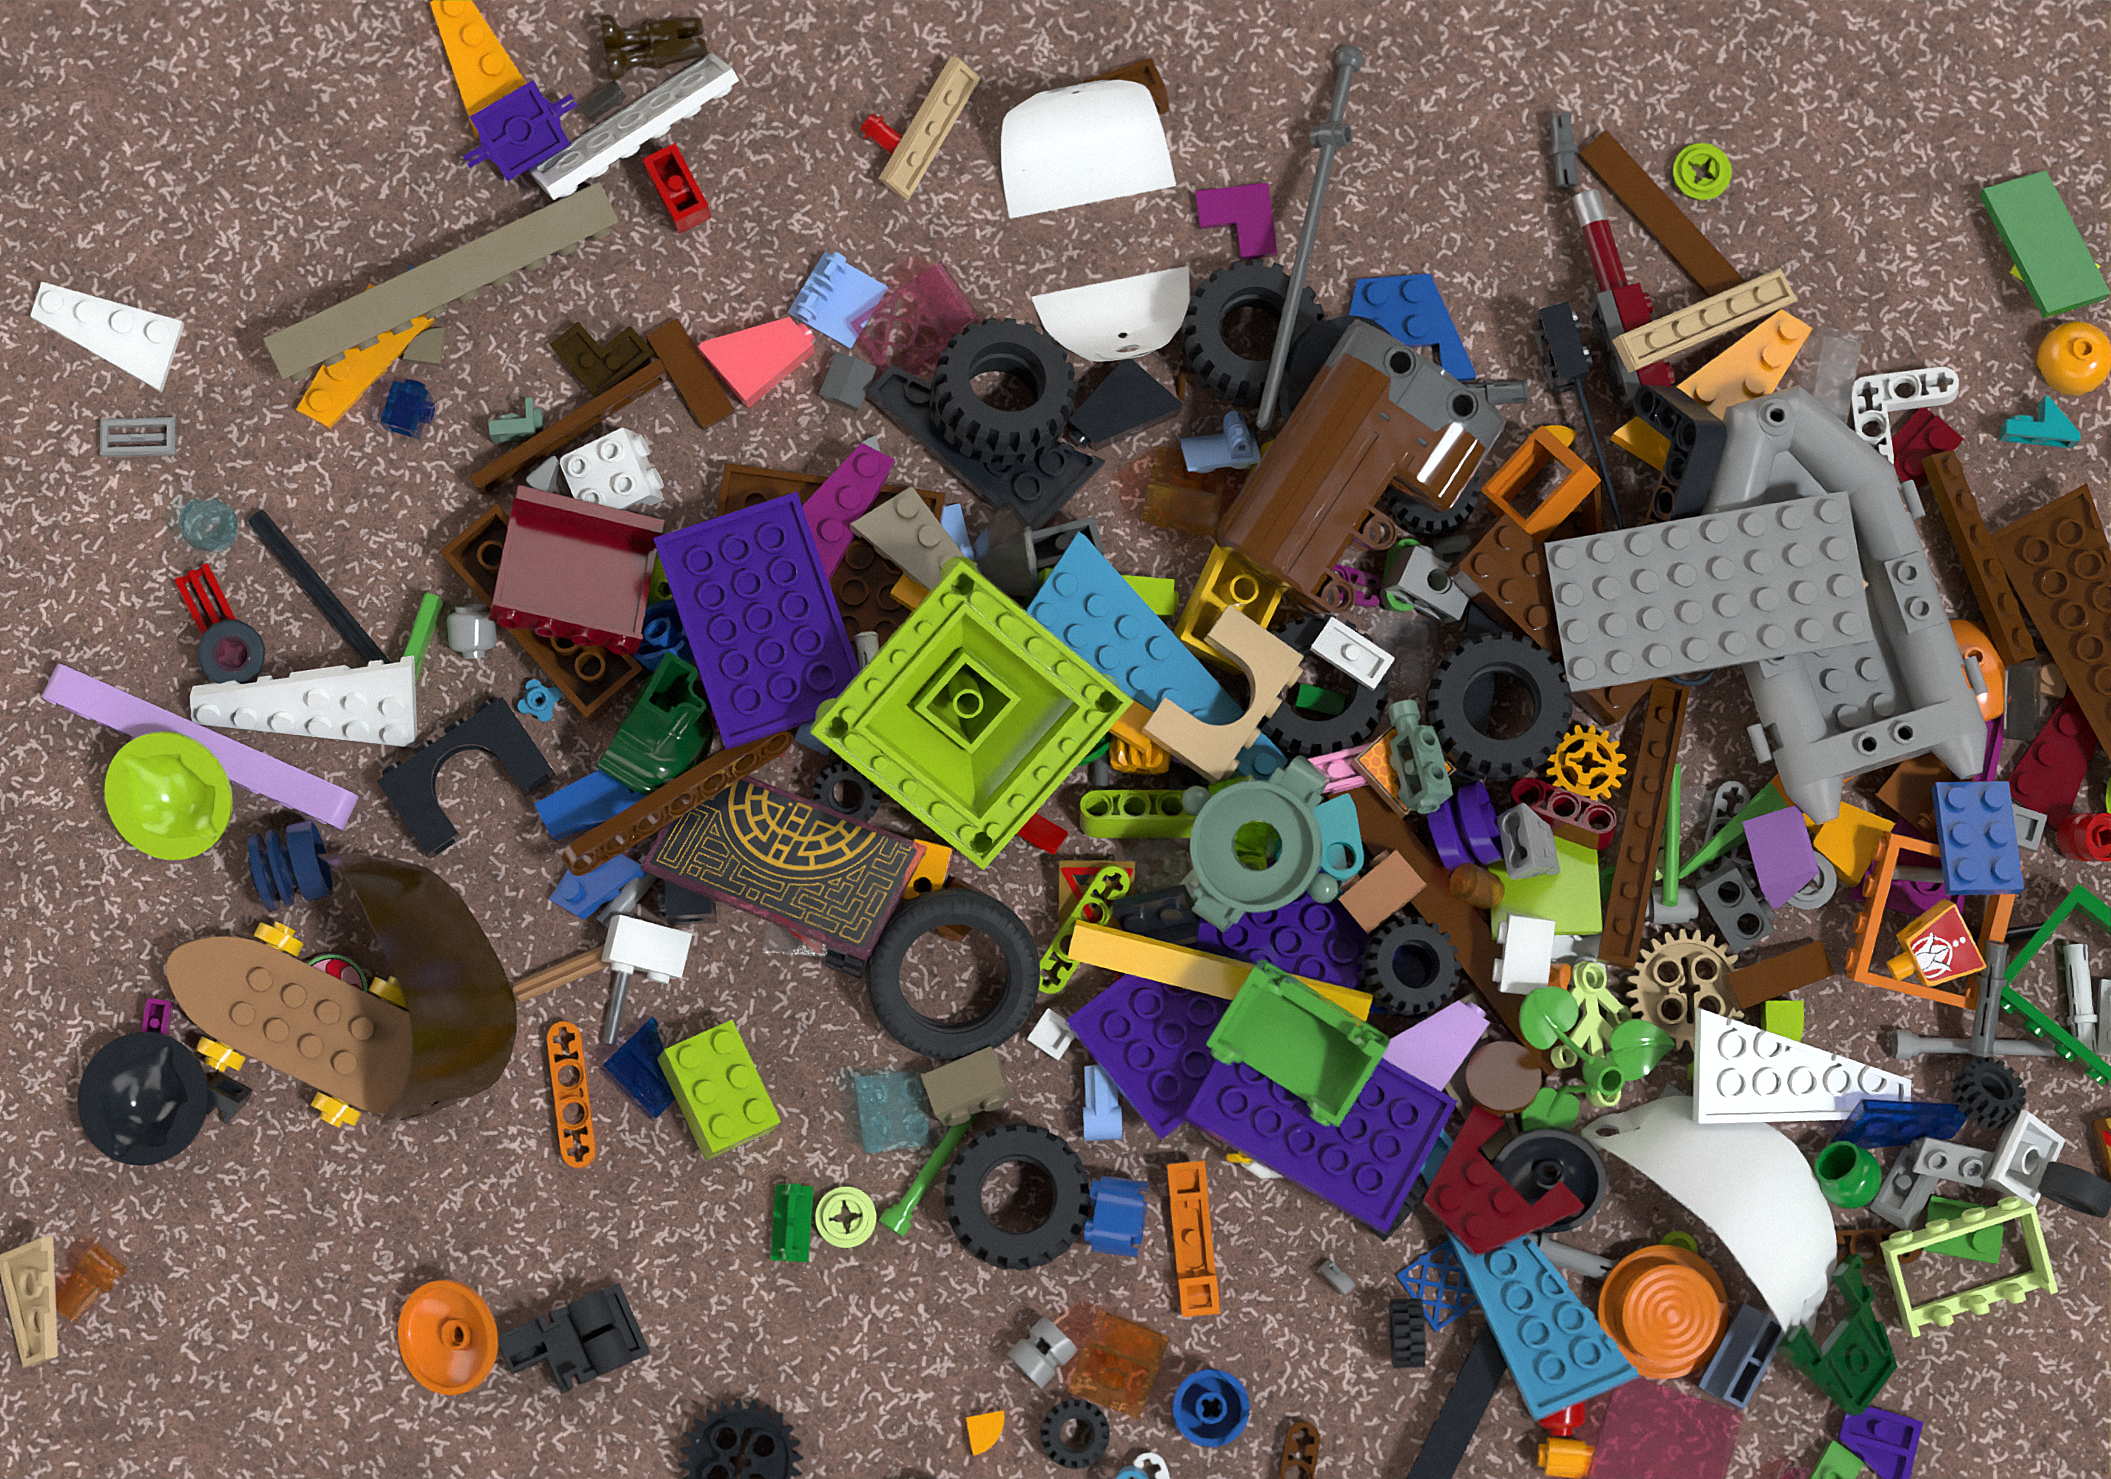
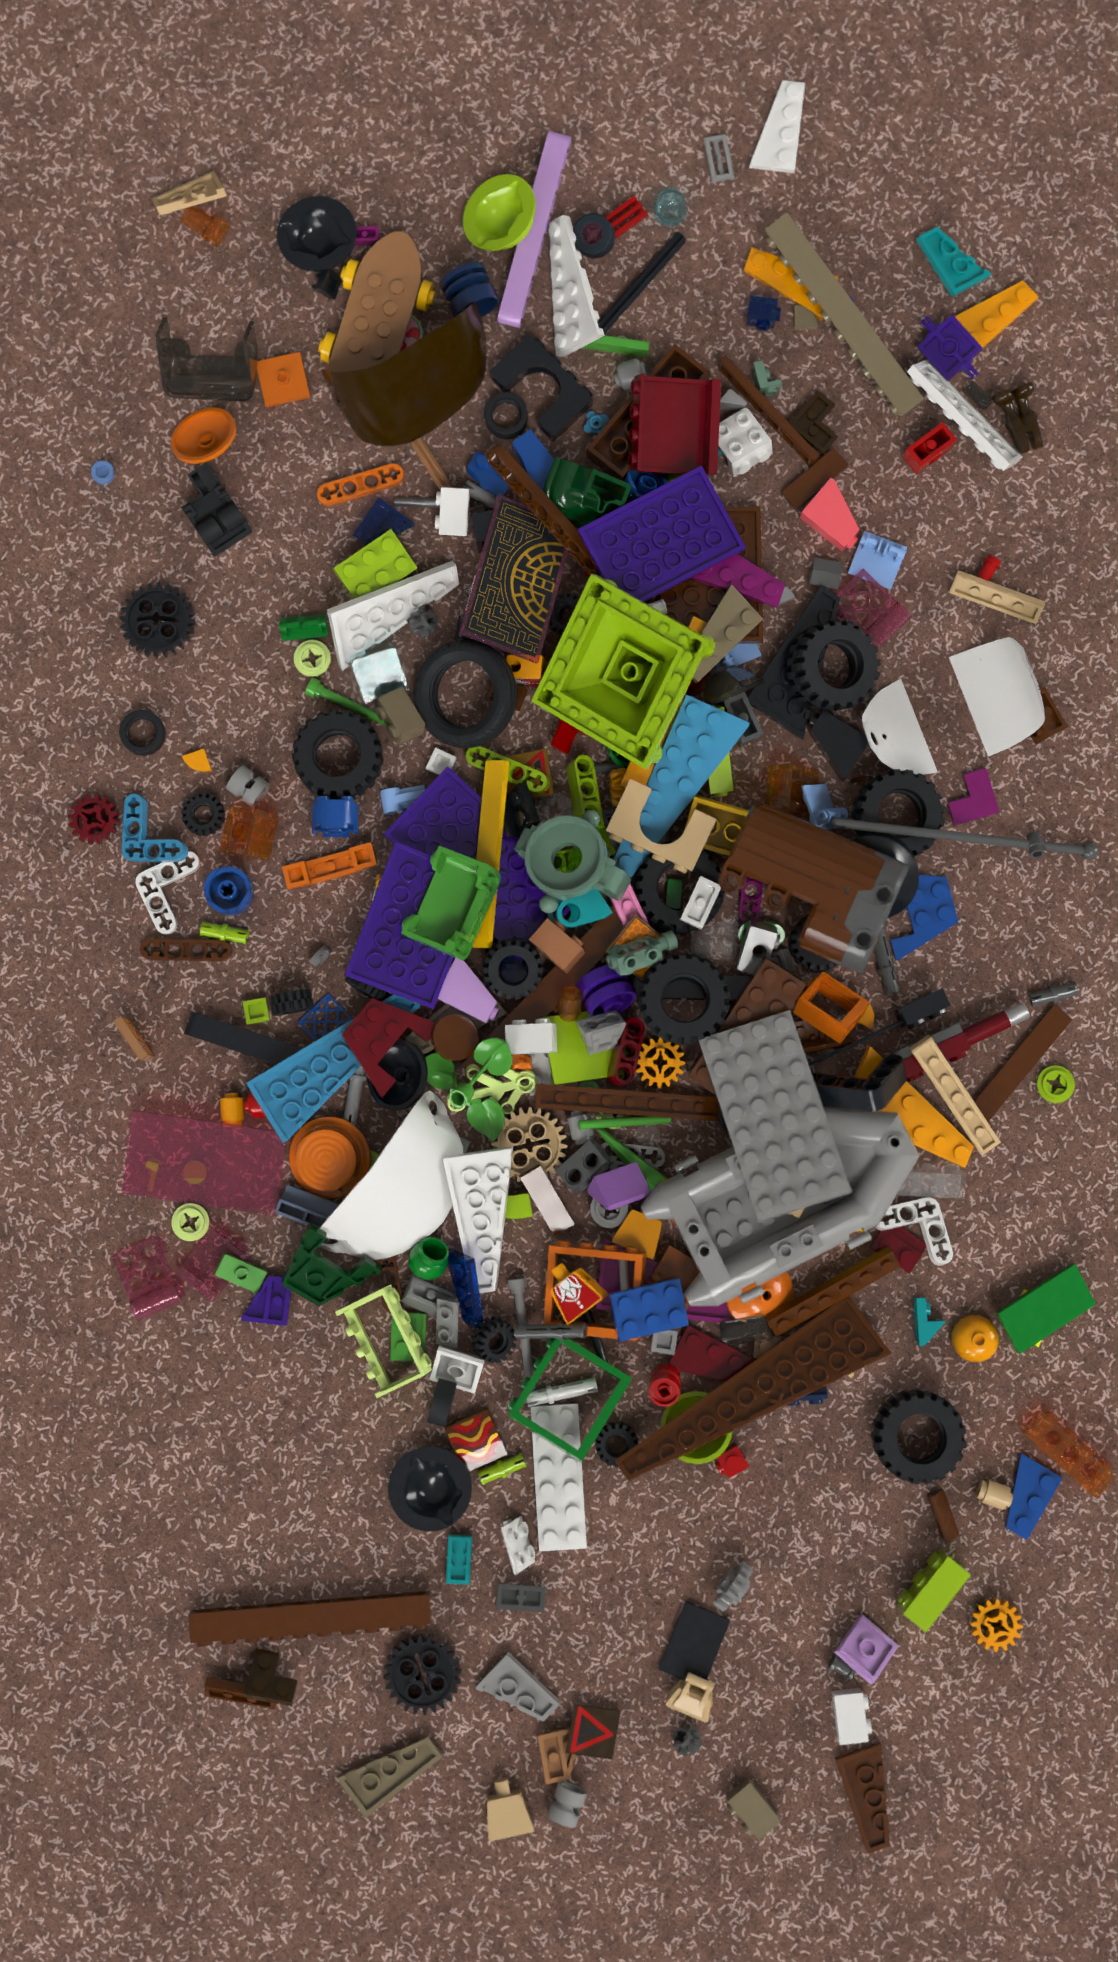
camera: 85 degrees right, 5 degrees up
(343, 1316) = (206, 376): none -> clear smoke windscreen
(371, 1195) = (283, 379): none -> orange plate
(383, 106) = (952, 266): none -> teal wing
(478, 823) = (502, 398): none -> black tyre
(792, 1084) = (384, 611): none -> white wing
(819, 1026) = (423, 622): none -> dark grey gear
(1274, 1428) = (224, 932): none -> lime pin
(1410, 1394) = (256, 1011): none -> lime plate

